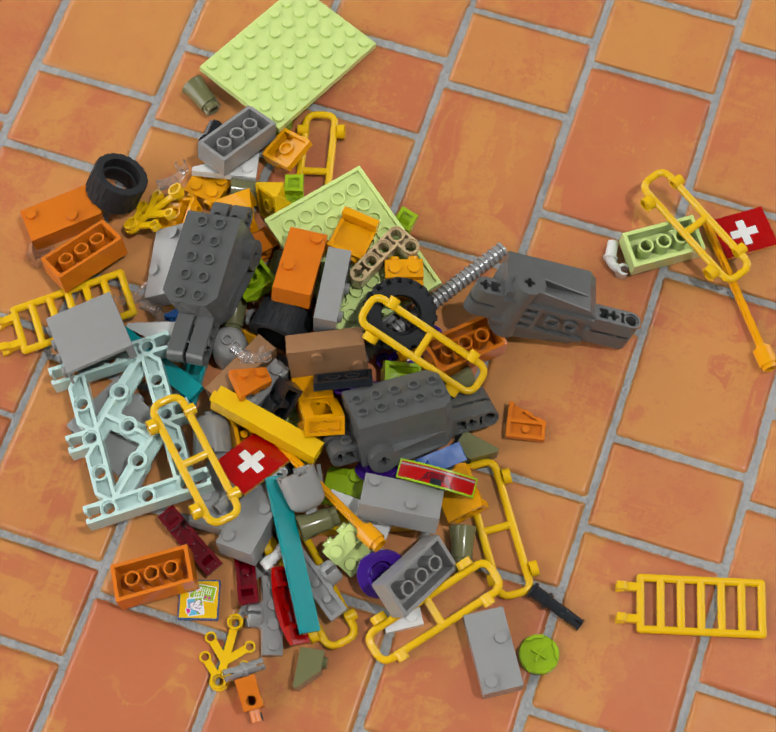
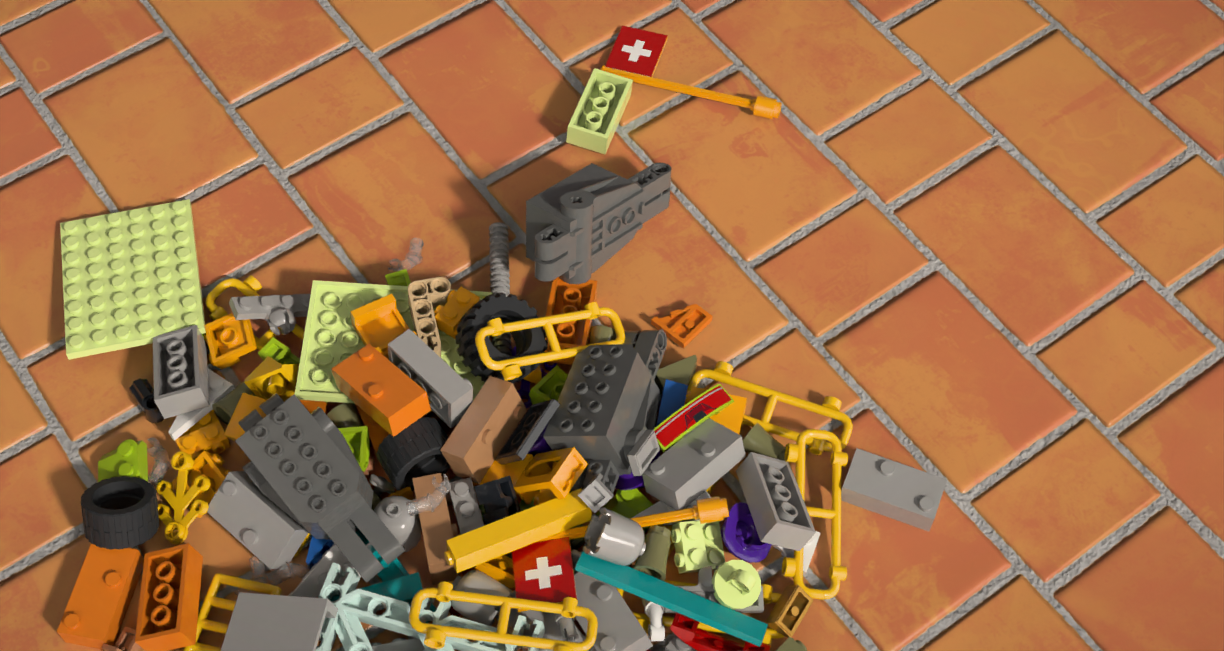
camera: 60 degrees left, 10 degrees down
(155, 161) = (126, 460): none -> lime slope
(201, 95) = (95, 378): olive plant -> none
(249, 381) = (459, 515): orange wing -> none
(320, 453) = (595, 494): none -> light grey panel
(326, 159) = (275, 309): none -> light grey plate
(332, 590) = (736, 584): none -> yellowish green tile
(345, 639) = (789, 610): none -> pearl gold slope
(378, 463) = (643, 452): none -> light grey tile
(437, 213) = (412, 258): none -> clear piece
(538, 654) = (918, 452): lime tile -> none
(547, 600) = (872, 413): black pin -> none
(611, 259) = (577, 156): white piece -> none
(701, 630) = (937, 284): yellow bar -> none
(711, 271) = (558, 87): yellow bar -> none

